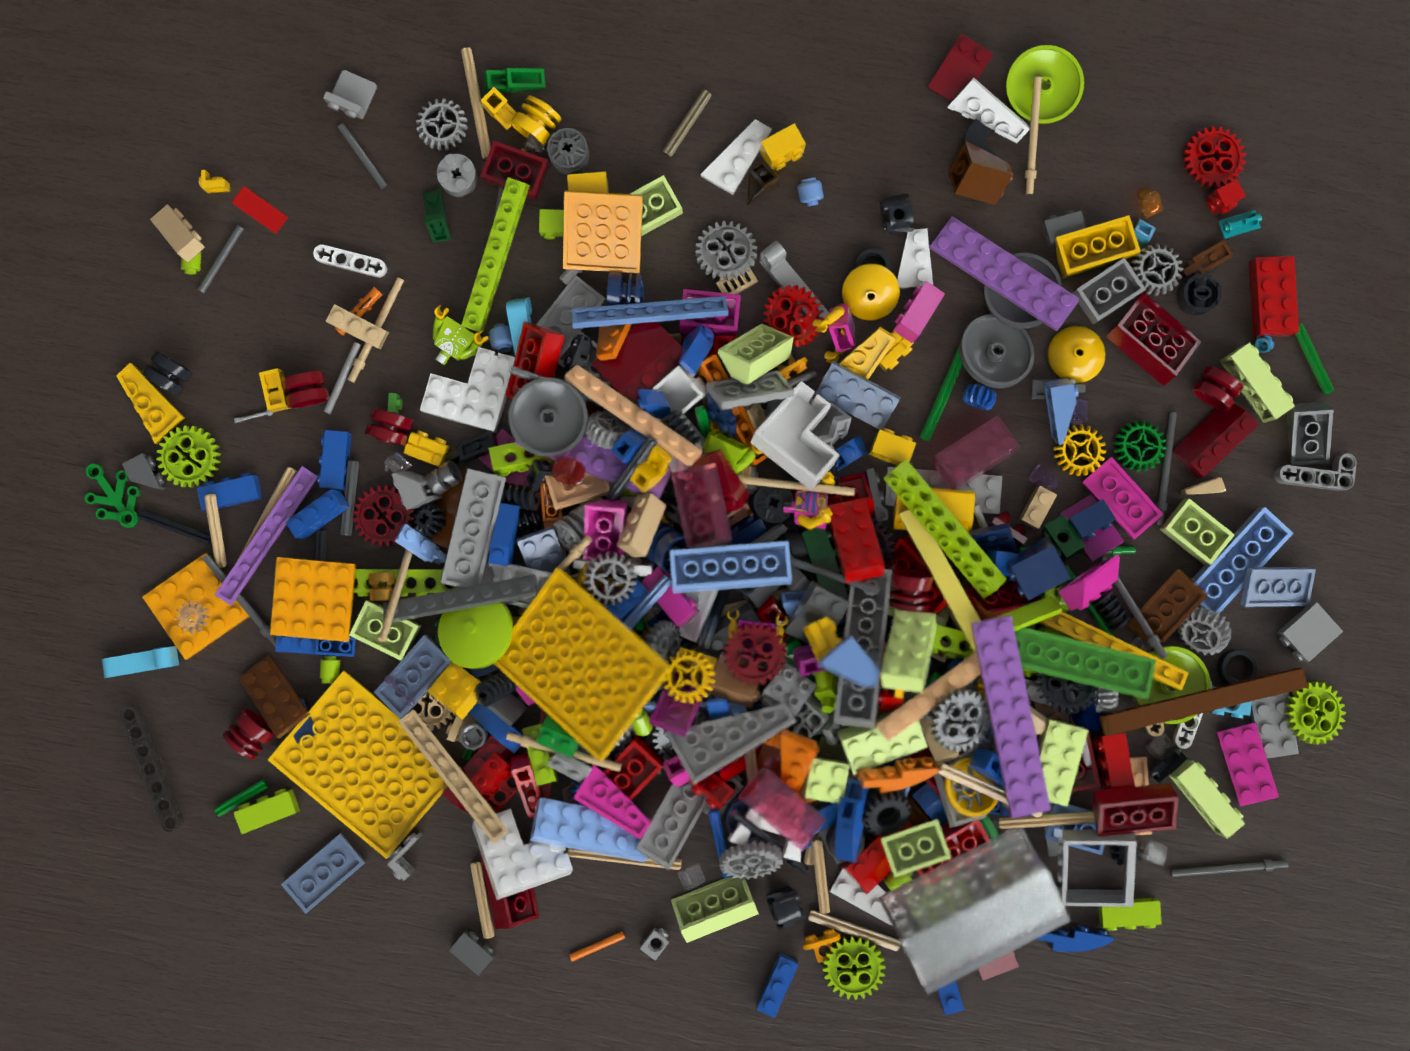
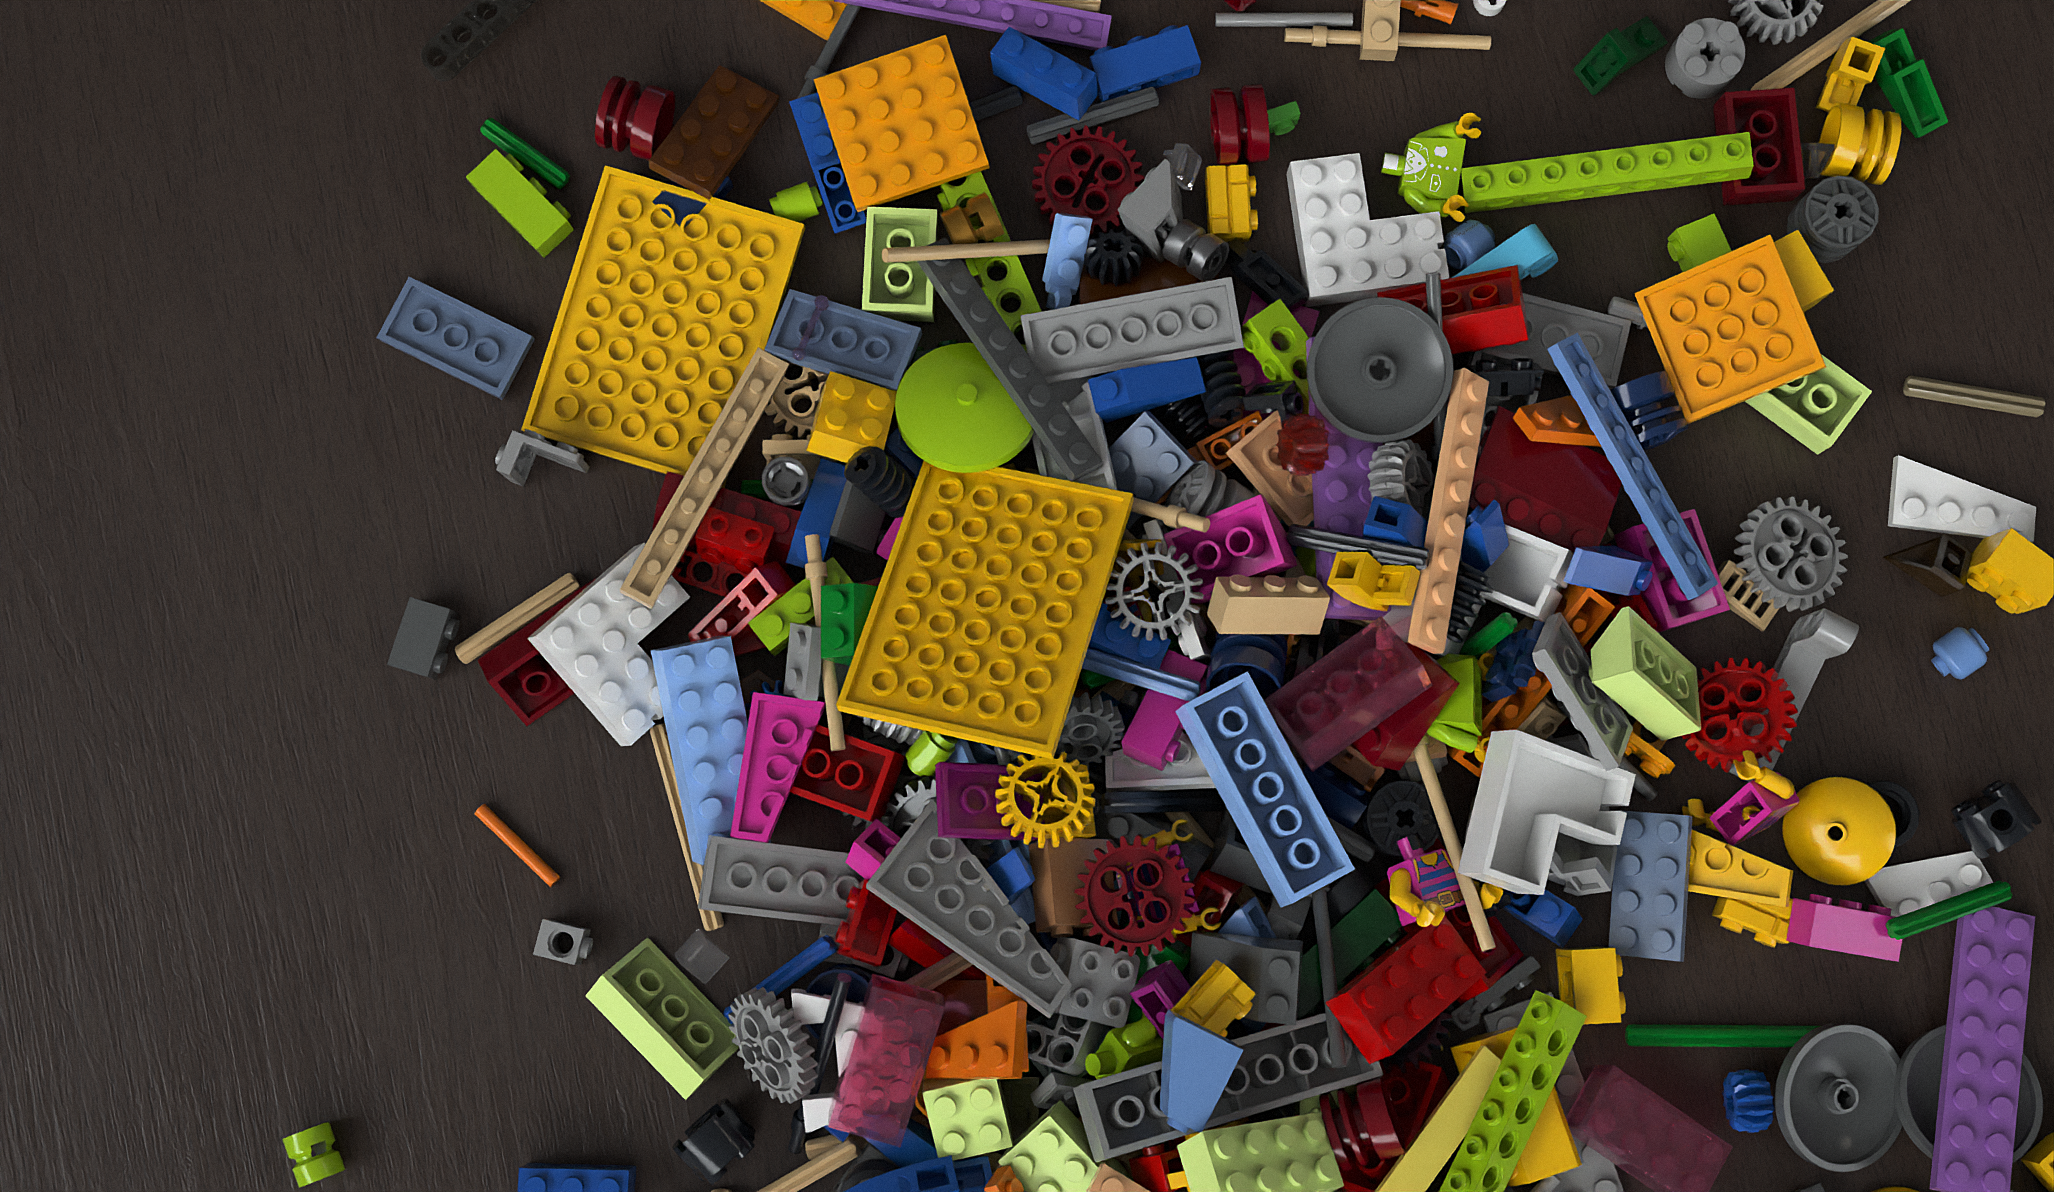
camera: 70 degrees right, 5 degrees down
(931, 257) = (1948, 910): none -> green axle

